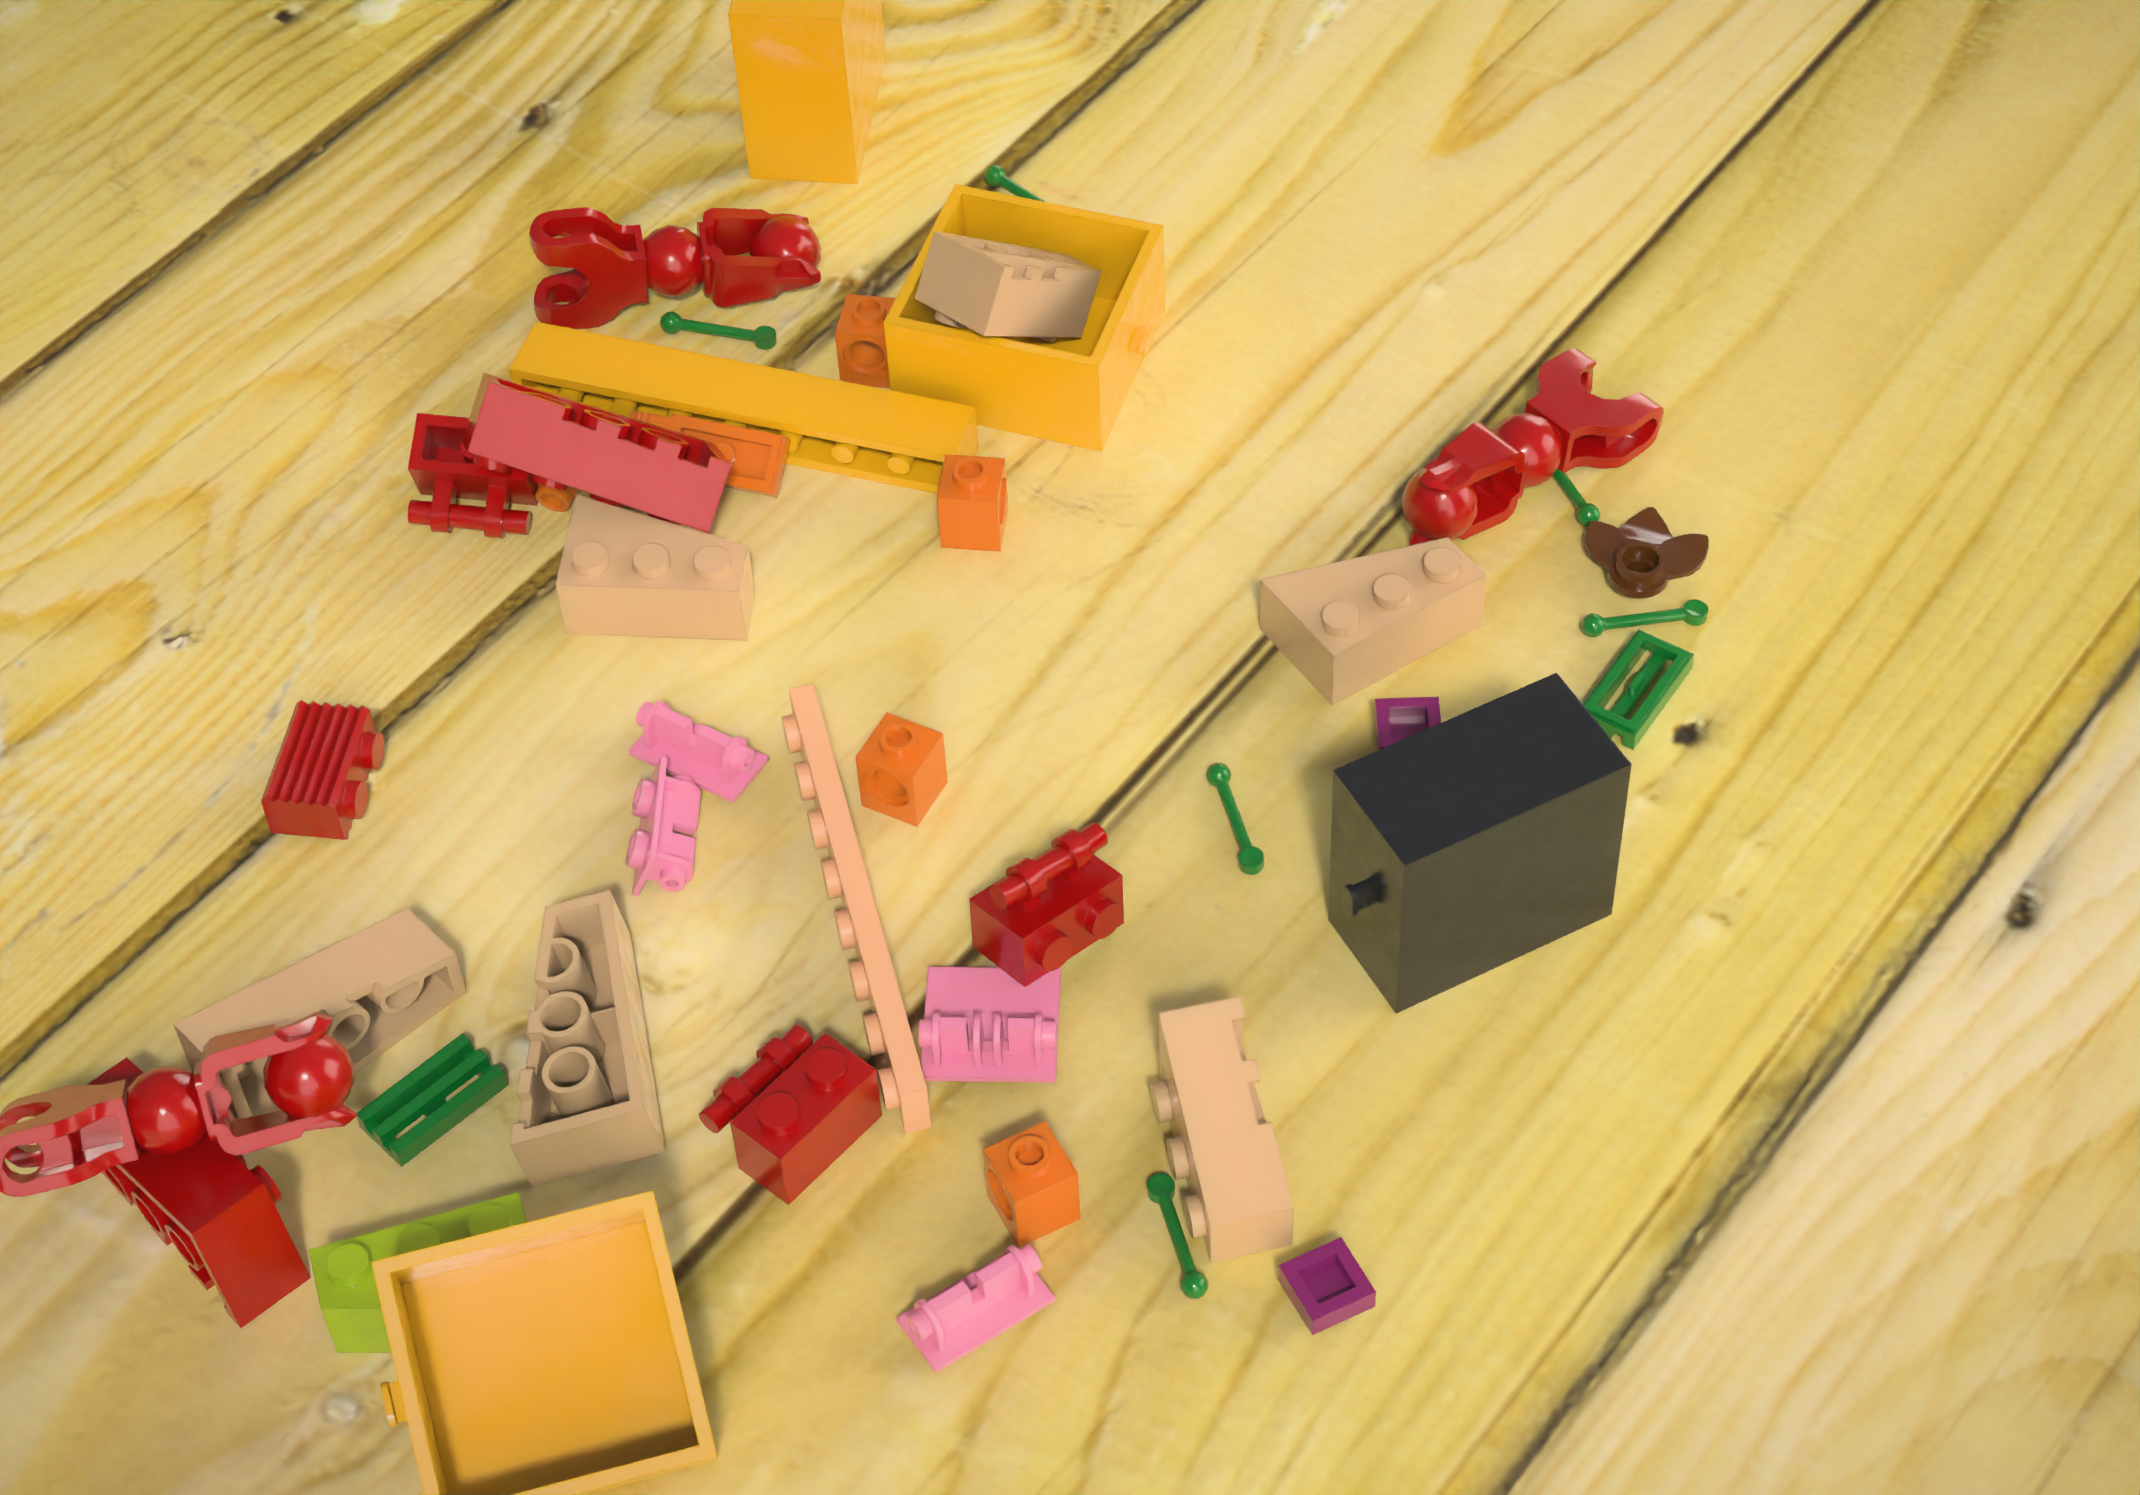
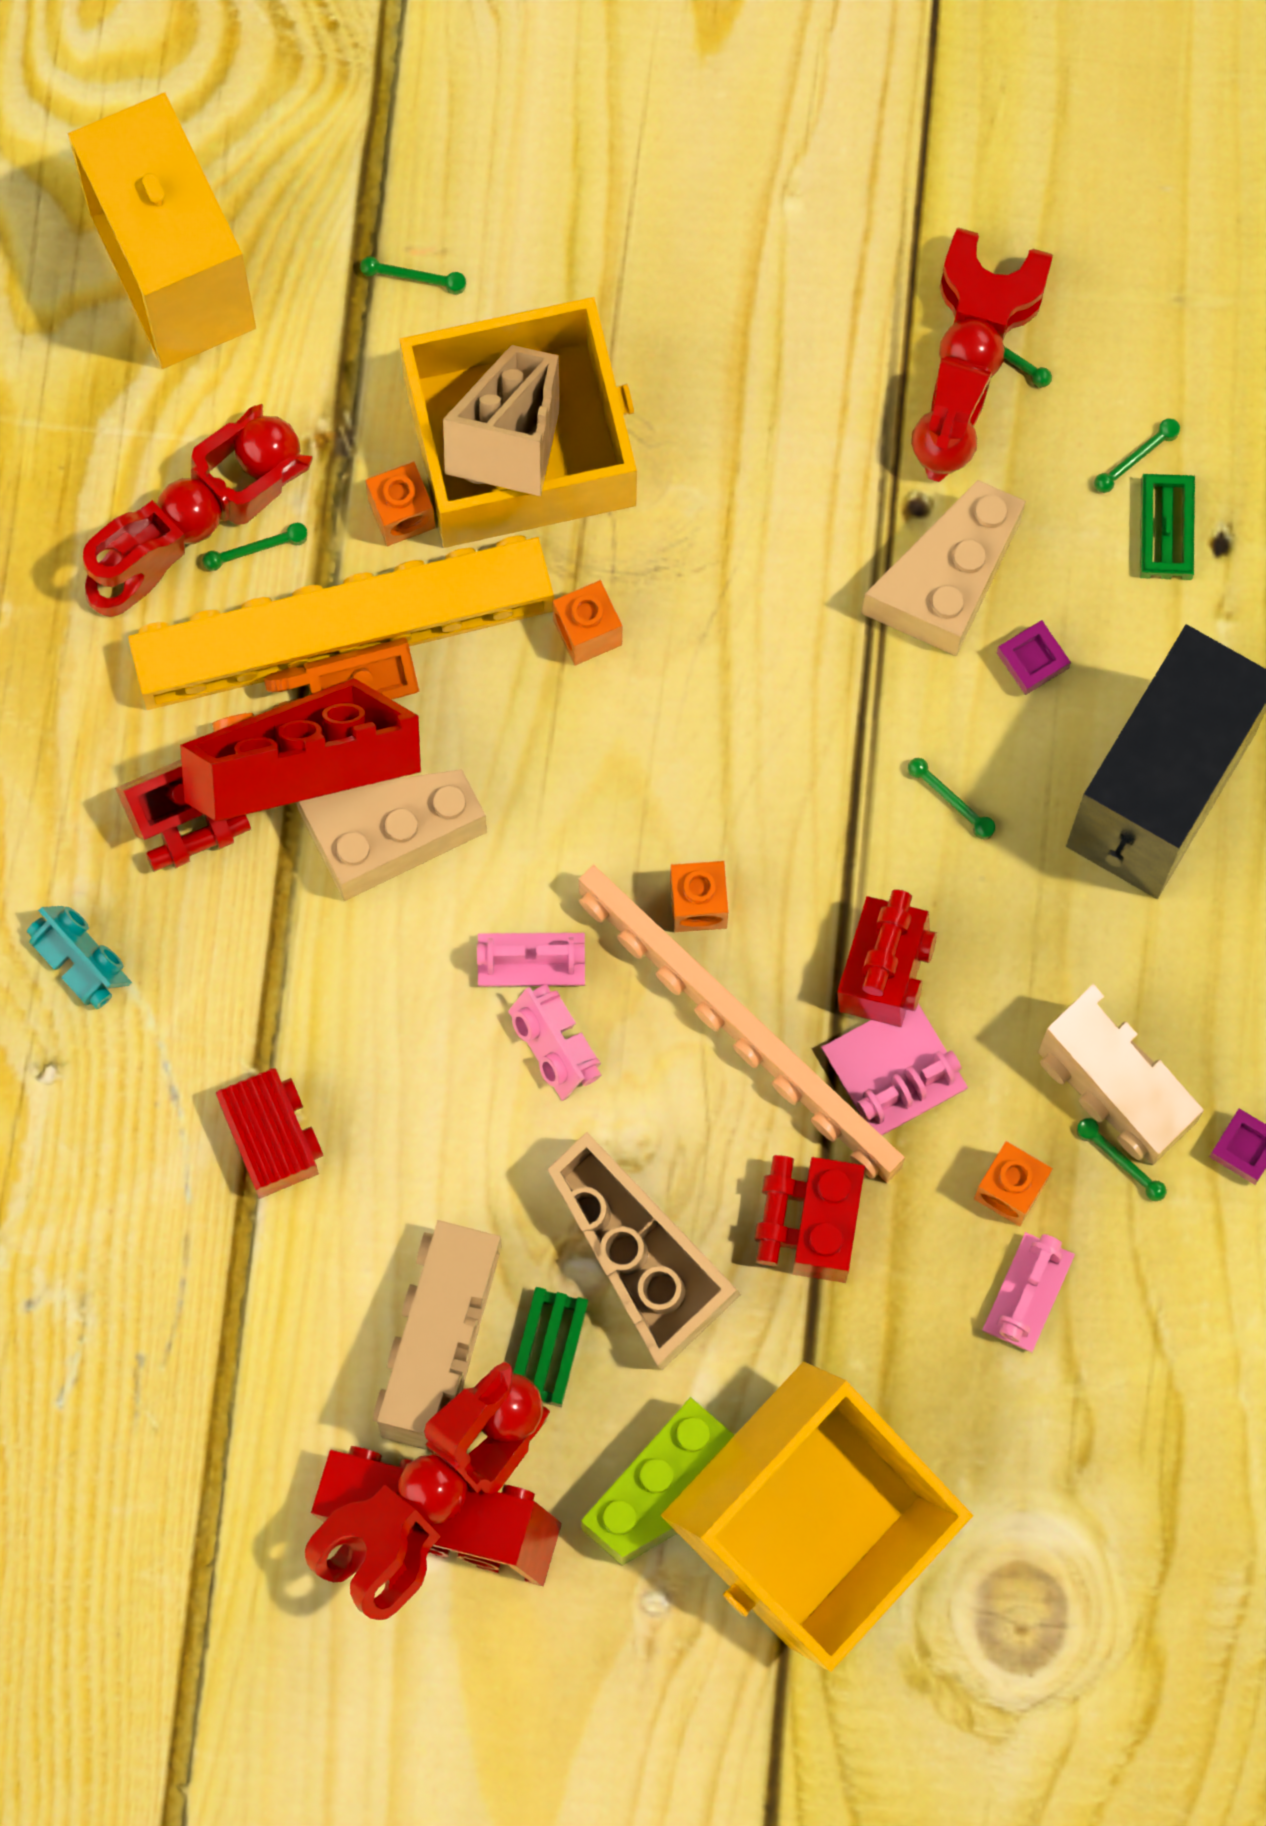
camera: 35 degrees left, 25 degrees up
(283, 552) = (94, 965): none -> teal hinge
(1644, 553) = (1104, 390): reddish brown plate -> none

